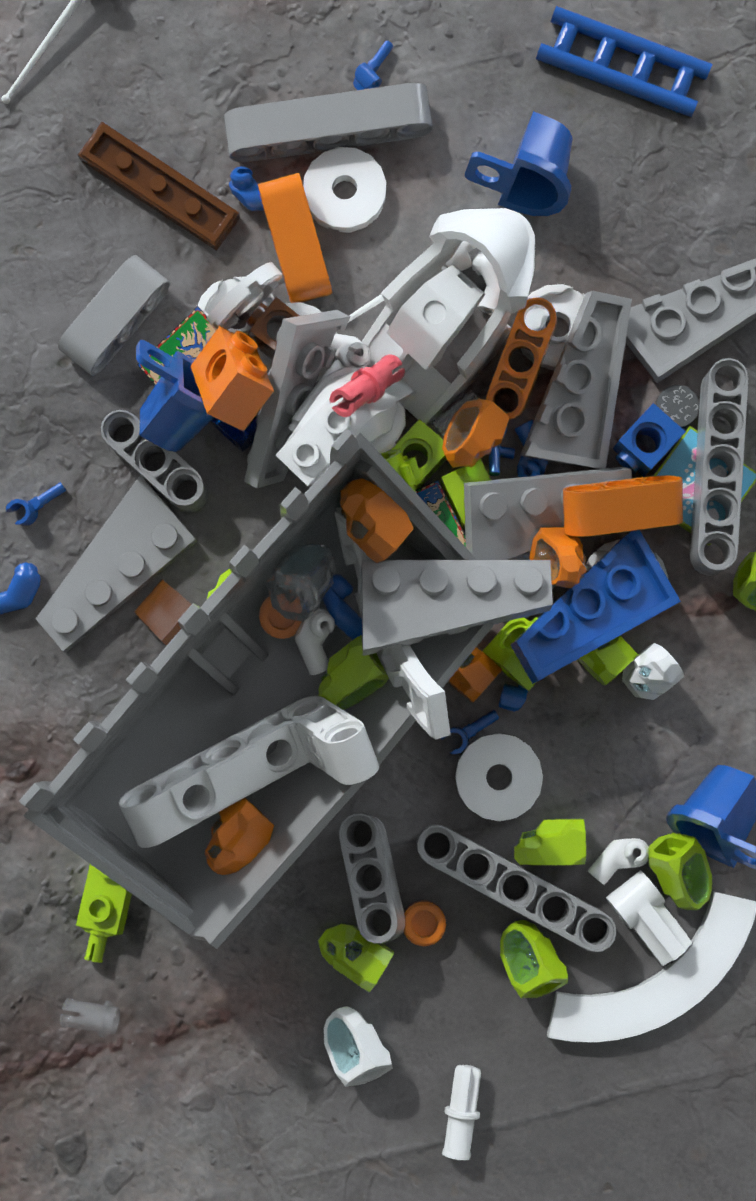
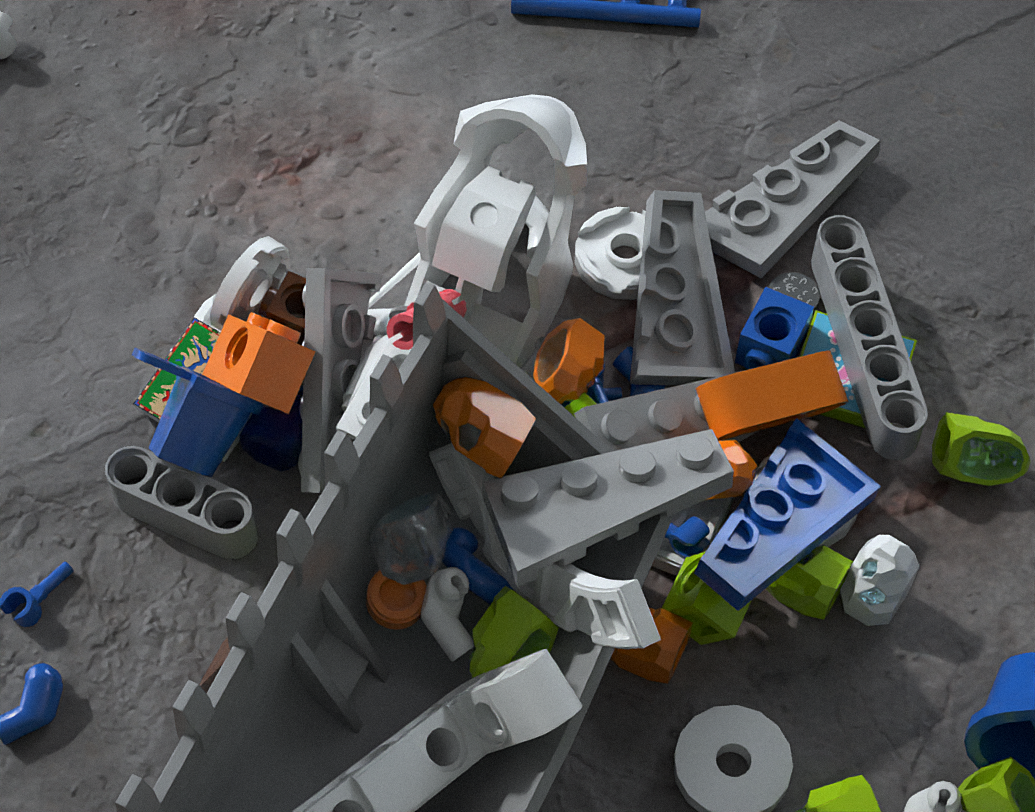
camera: 20 degrees left, 25 degrees down
(114, 315) = (91, 359): light grey beam -> none
(121, 559) = (157, 643): light grey wing -> none
(159, 186) = (115, 221): reddish brown tile -> none
(245, 188) = (230, 204): blue arm -> none
(295, 238) = (288, 215): orange beam -> none
(328, 122) = (296, 114): light grey beam -> none
(350, 166) = (329, 153): white tile -> none
(365, 73) = (331, 67): blue hand -> none
(471, 729) = (674, 718): blue hand -> none
(512, 697) = (716, 661): blue hand -> none
(523, 337) = (603, 260): orange beam -> none
(538, 177) = (546, 72): blue container -> none

